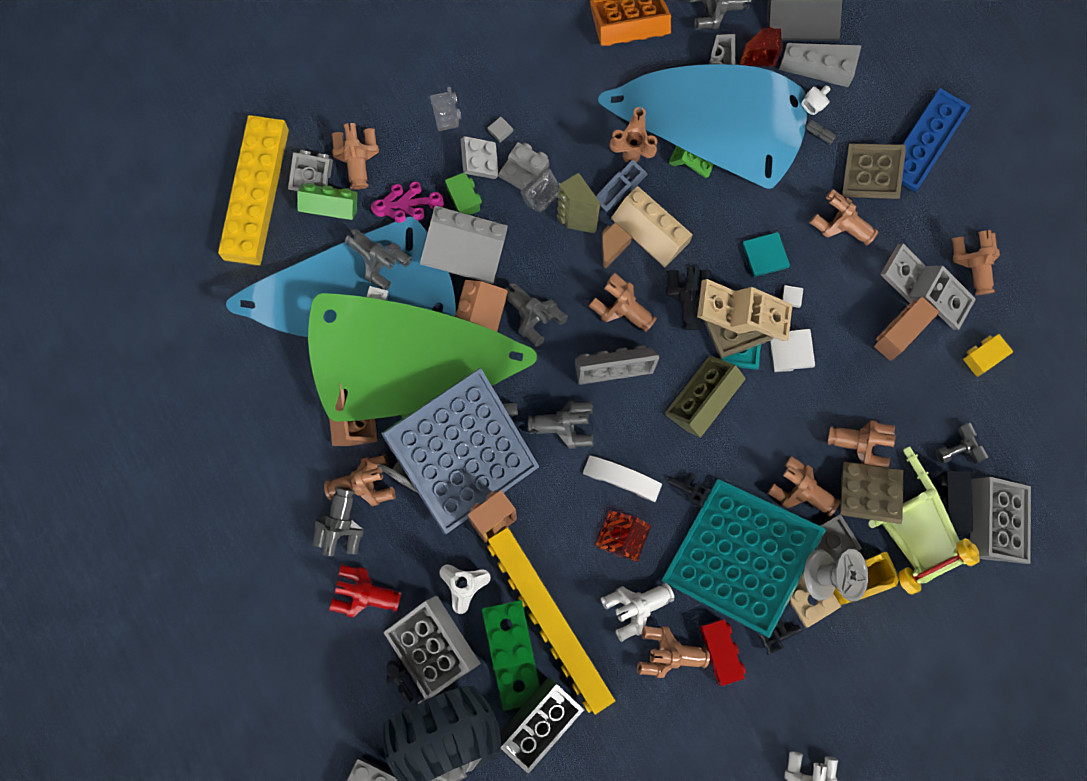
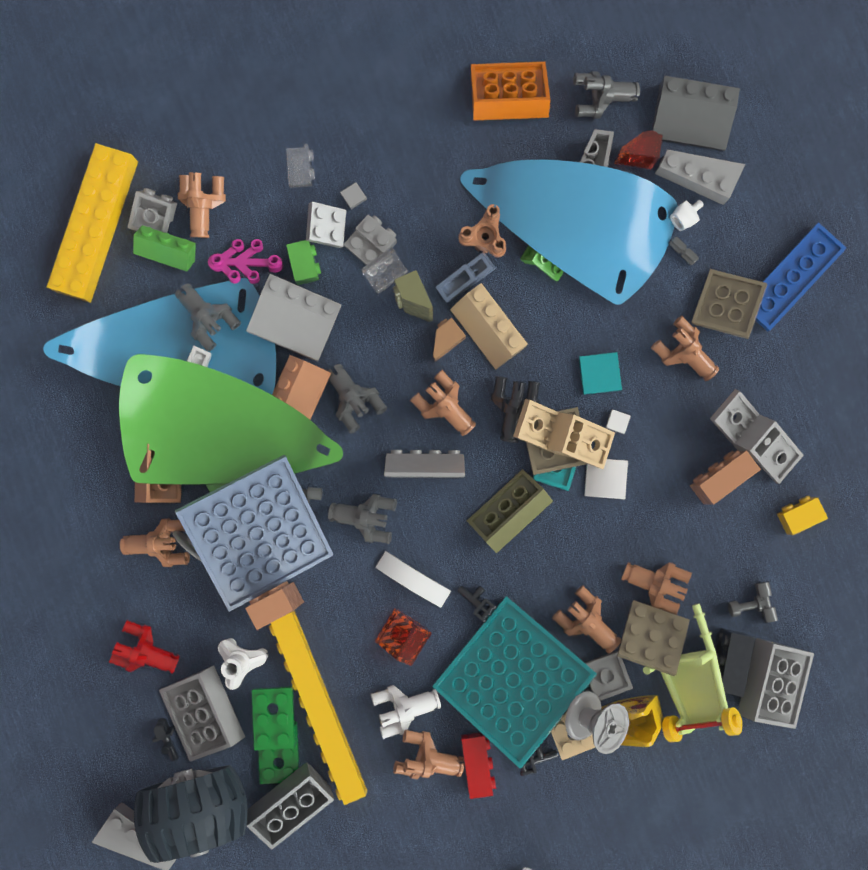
camera: 15 degrees right, 10 degrees up
(337, 524) = (128, 583): dark grey wheel -> none
(978, 261) = (816, 418): nougat wheel -> none

